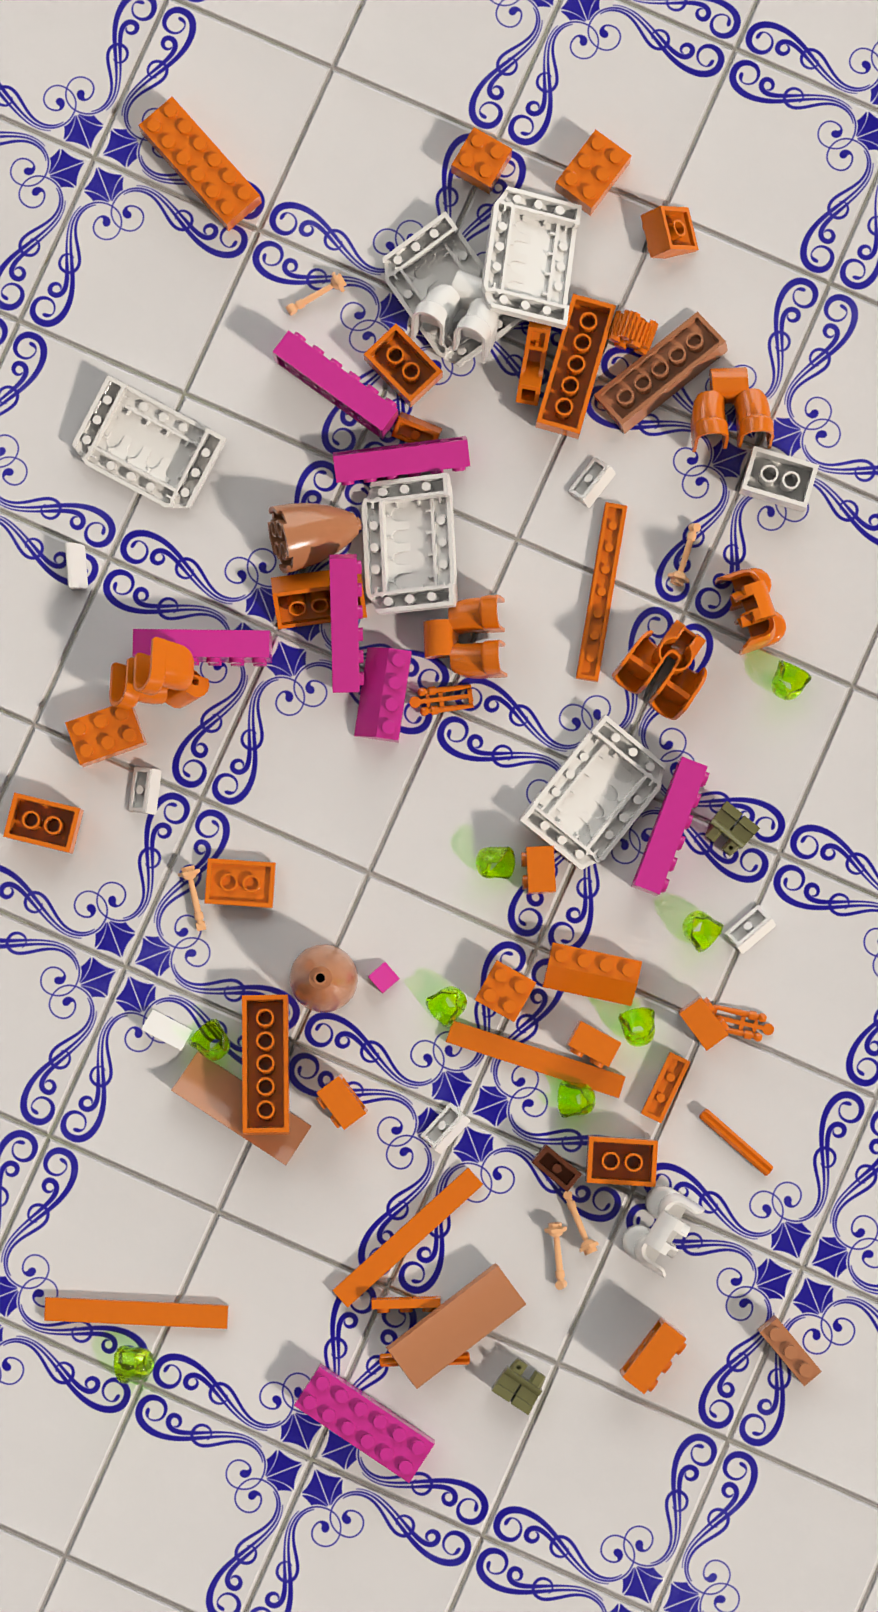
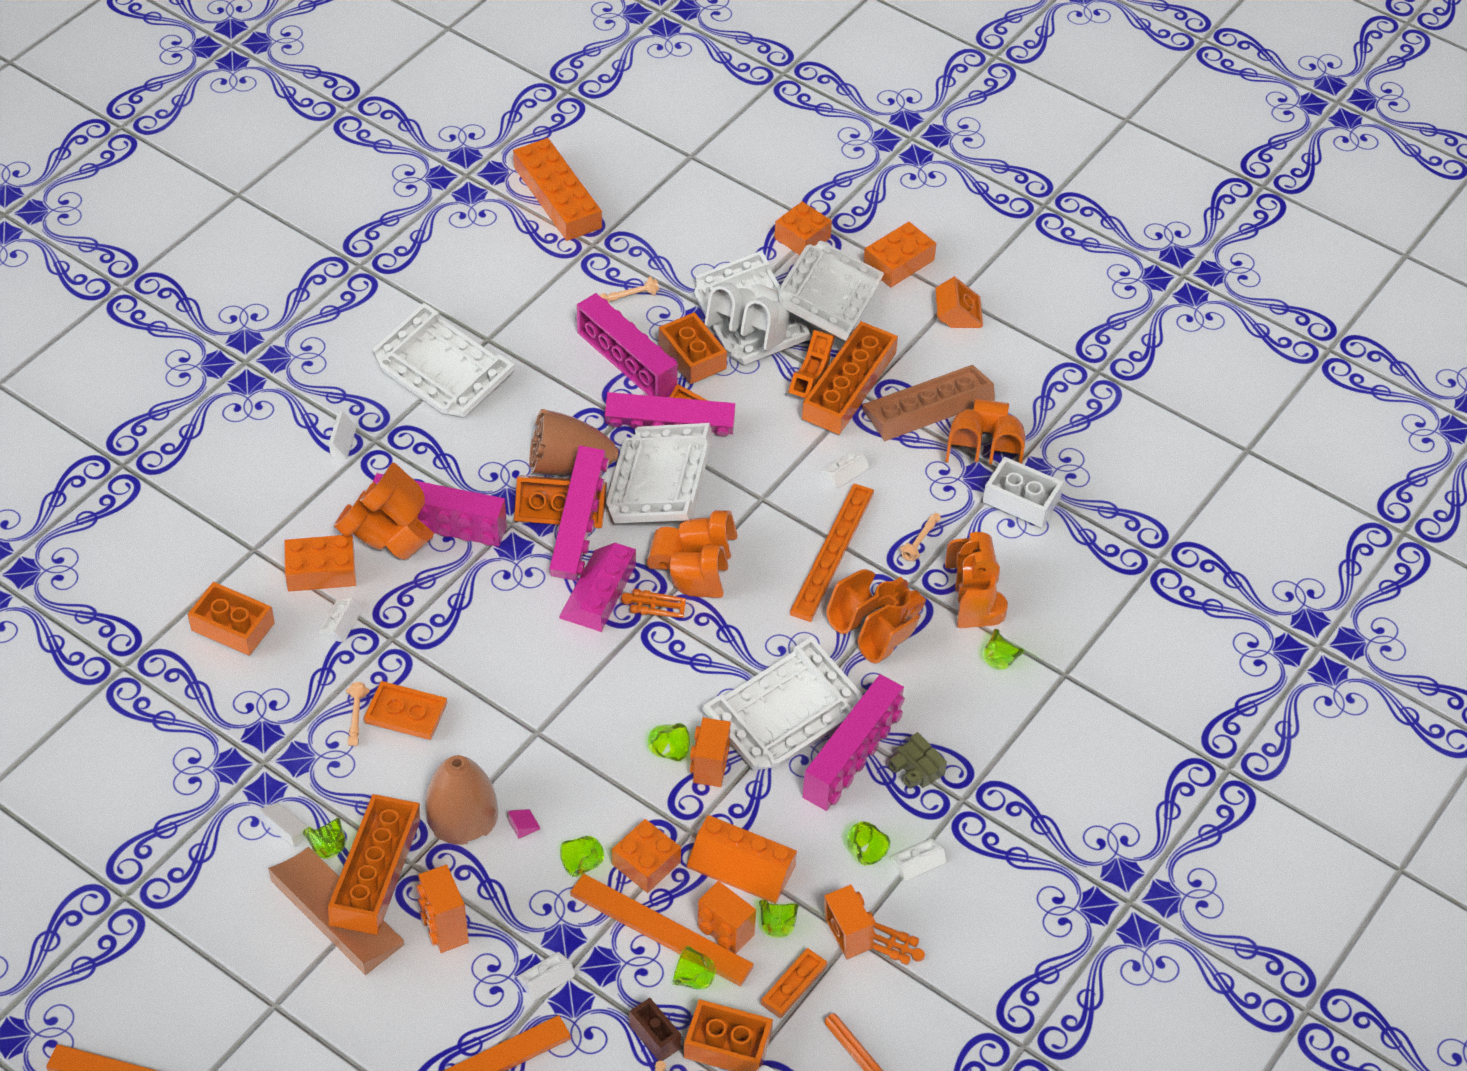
camera: 10 degrees right, 35 degrees down
(632, 331) = (908, 361): orange brick -> none

